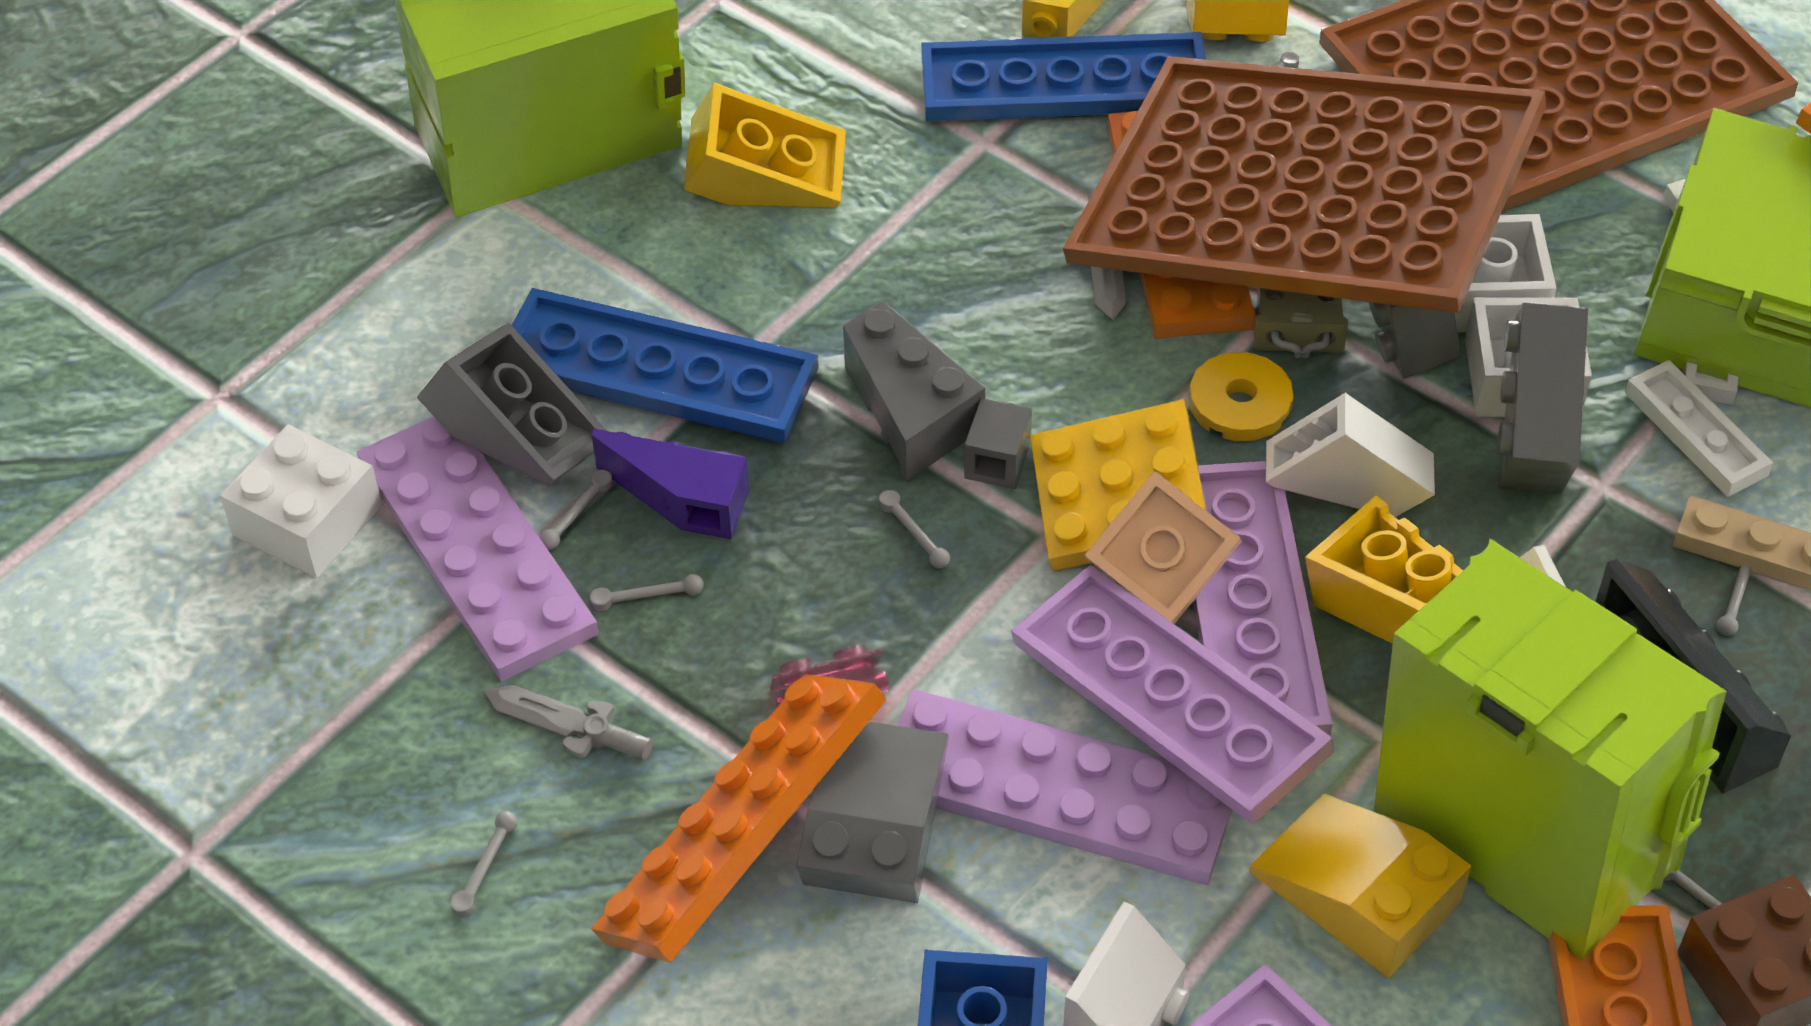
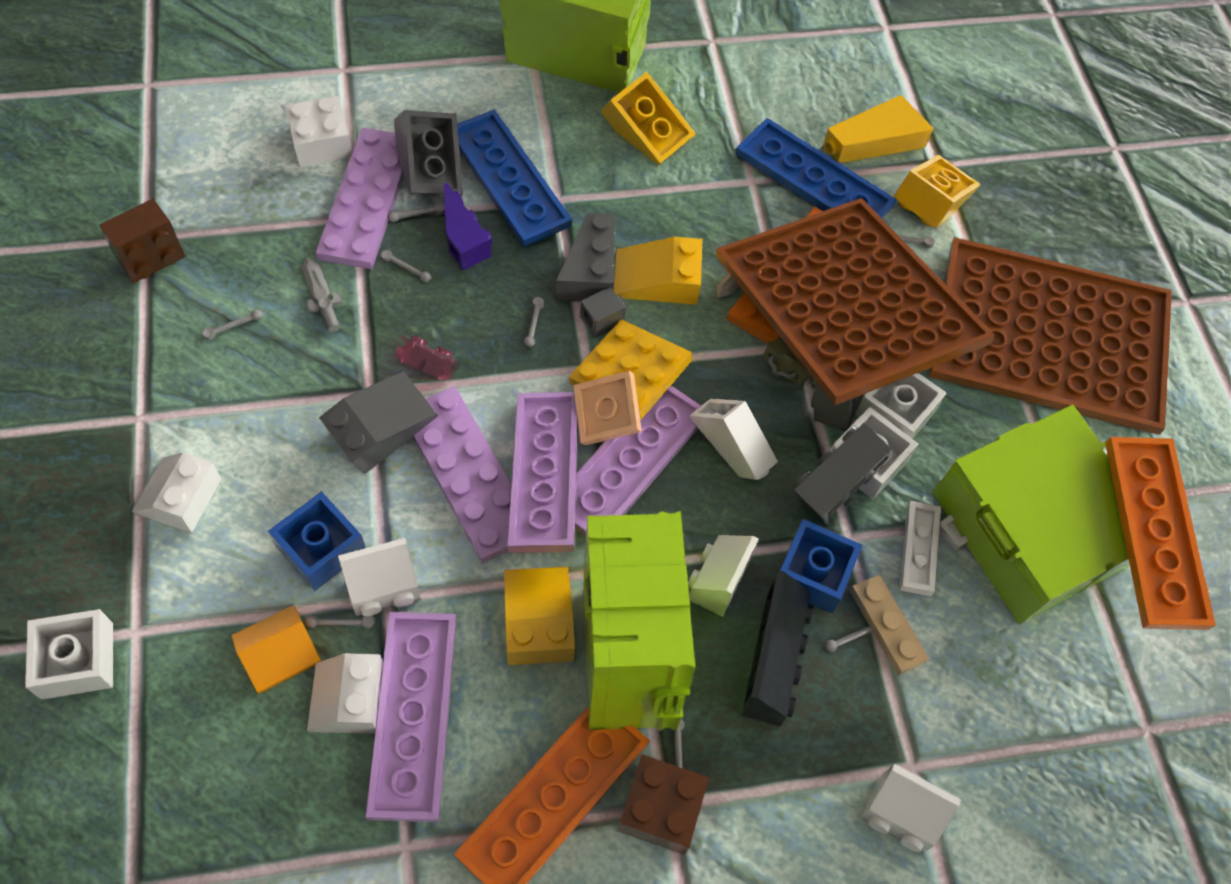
camera: 35 degrees right, 10 degrees up
(226, 843) = (142, 240): none -> reddish brown brick
(737, 816) = (324, 380): orange plate -> none
(1019, 327) = (660, 271): none -> yellow slope
(1246, 374) = (731, 357): yellow tile -> none
(1377, 571) = (693, 489): yellow wedge -> none
(1621, 518) = (821, 563): none -> blue brick

